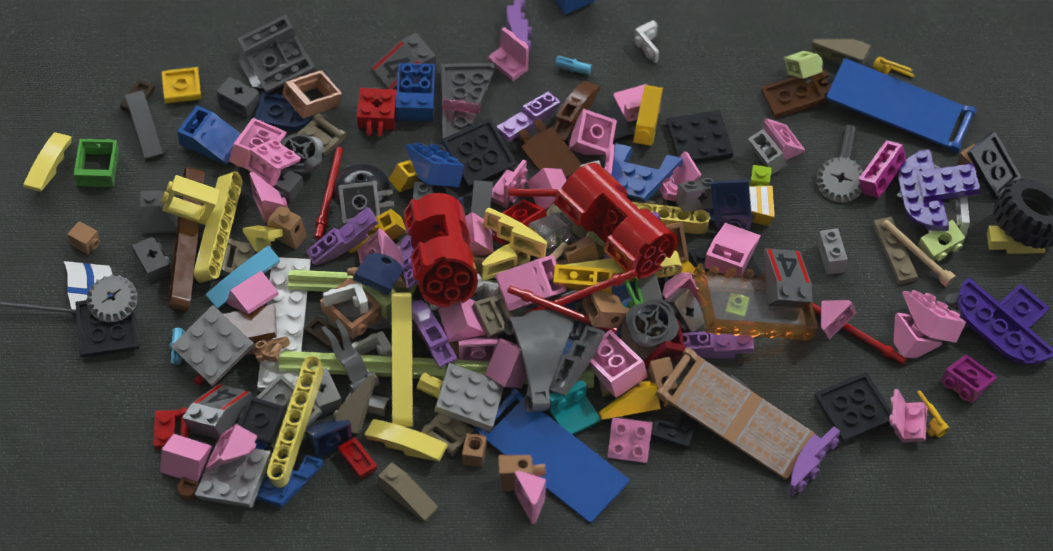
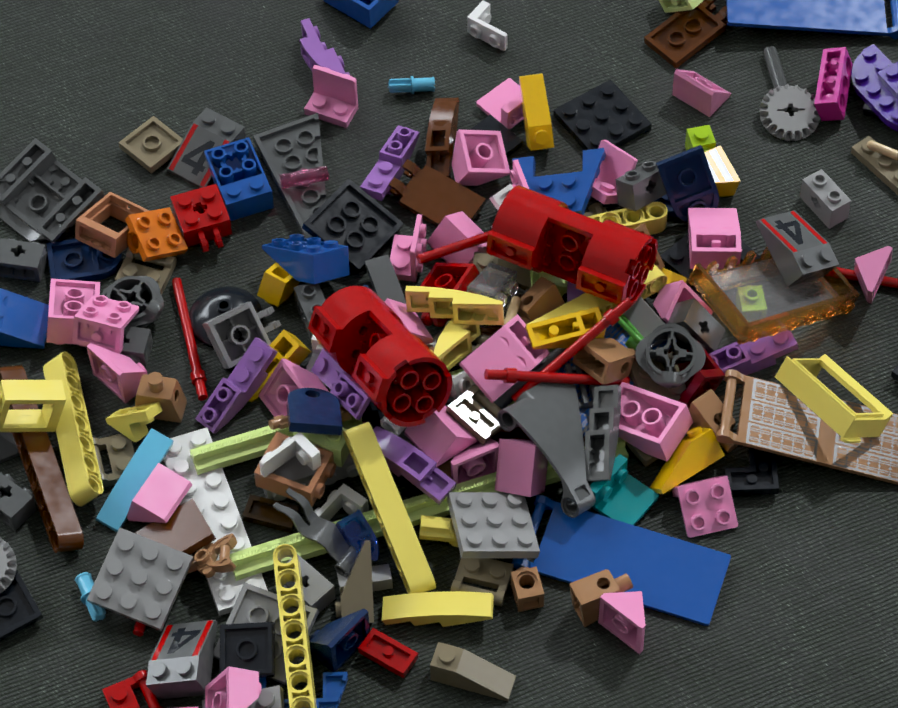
camera: 20 degrees left, 0 degrees up
(337, 111) = (155, 234): none -> orange plate
(368, 46) = (151, 144): none -> dark tan plate
(373, 364) = (357, 530): none -> clear blue plate
(737, 373) = (800, 378): none -> light yellow piece
(767, 151) = (691, 107): light grey brick -> none

